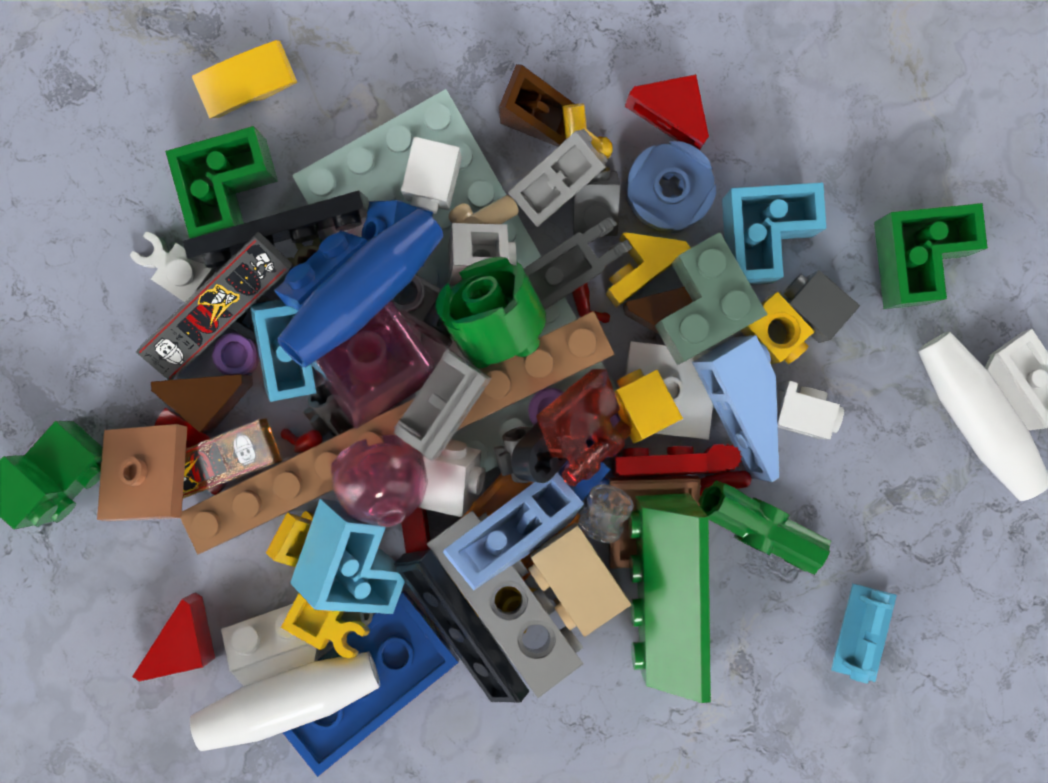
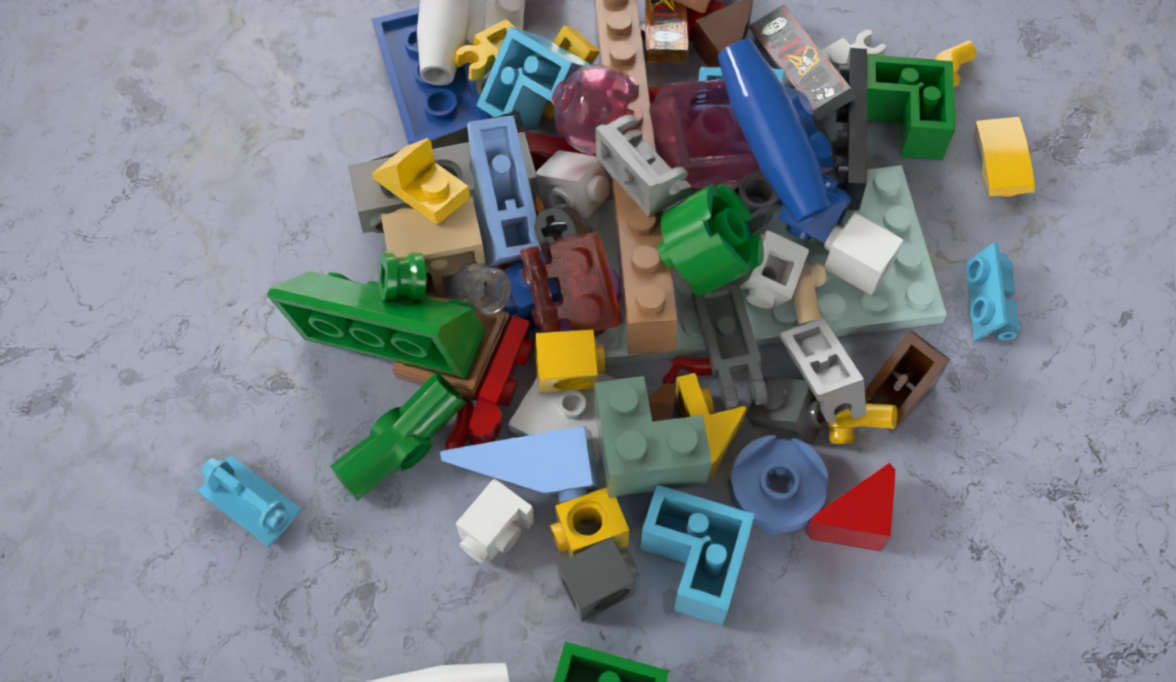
camera: 110 degrees right, 25 degrees down
(143, 165) = (959, 55): none -> yellow arm
(390, 62) = (989, 282): none -> medium azure hinge
(537, 613) = (422, 182): none -> yellow slope
(645, 584) = (402, 276): none -> green wheel

